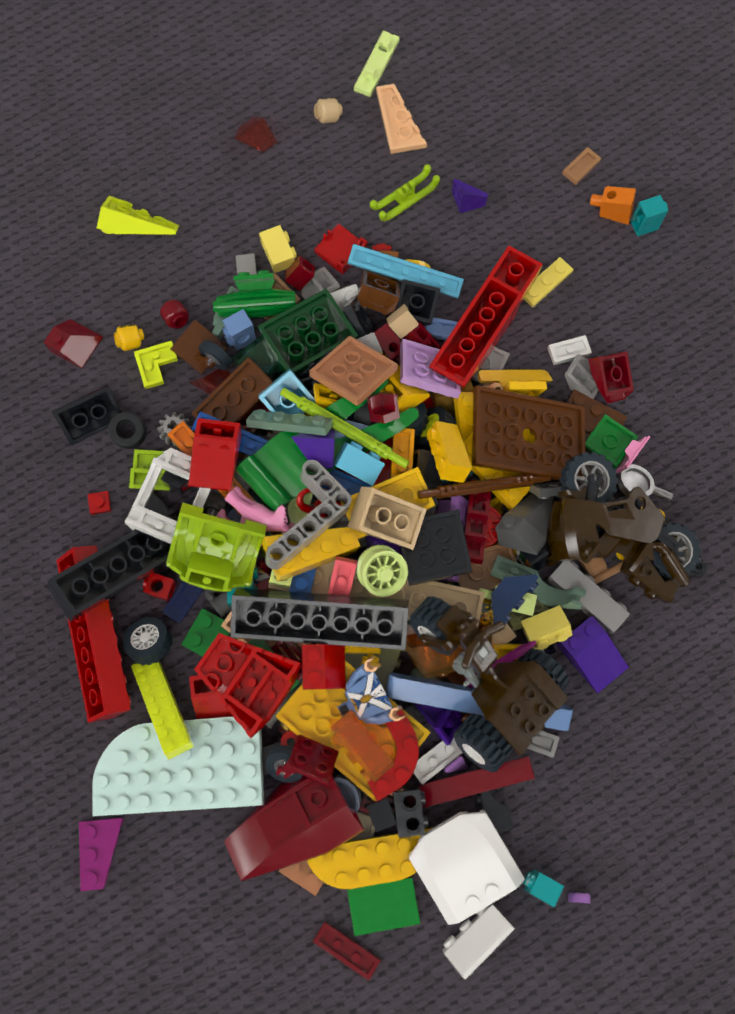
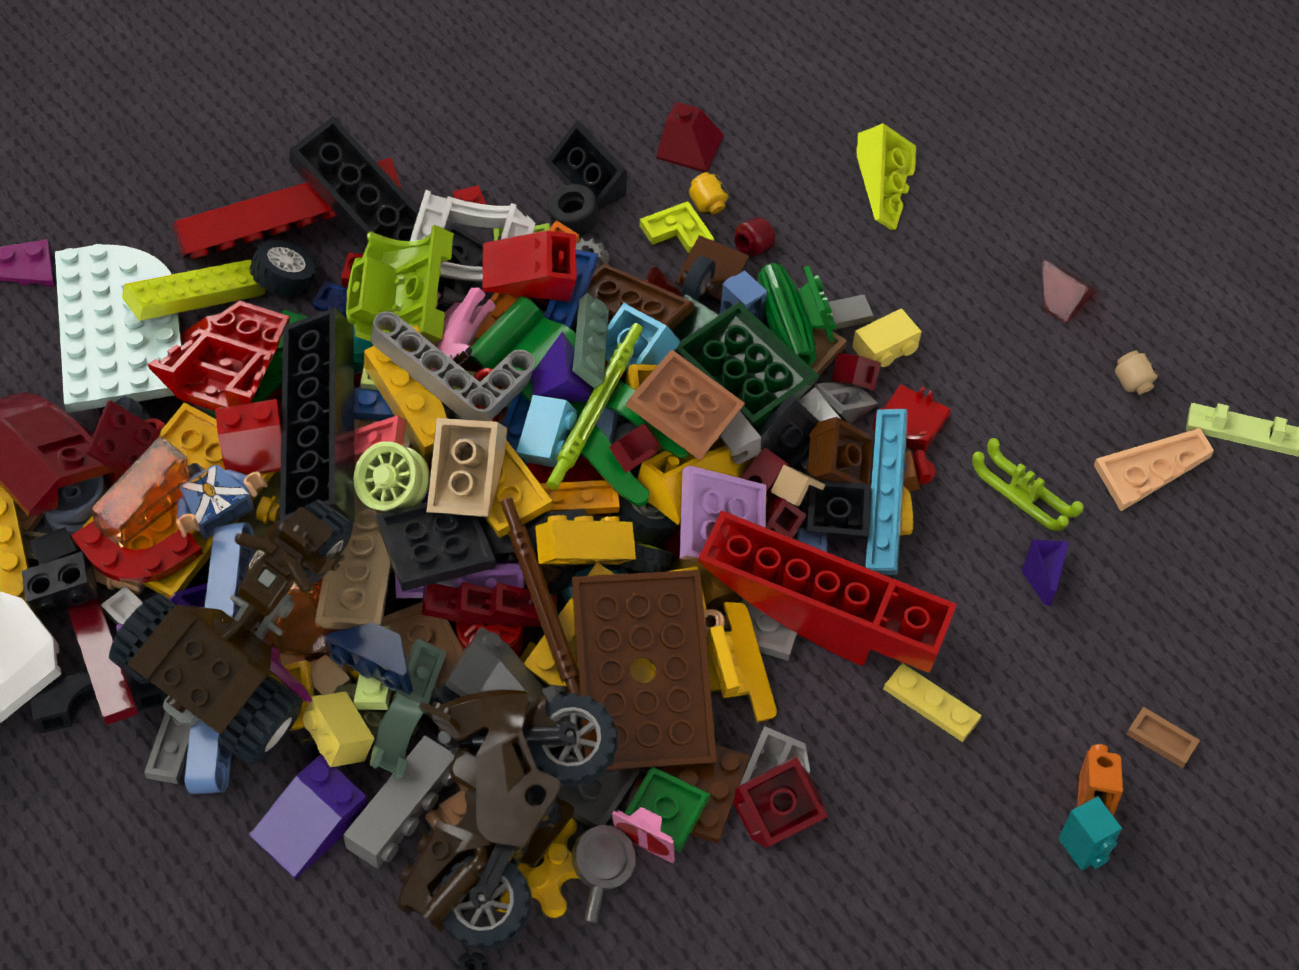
camera: 80 degrees right, 20 degrees down
(568, 349) = (821, 747): white plate -> none

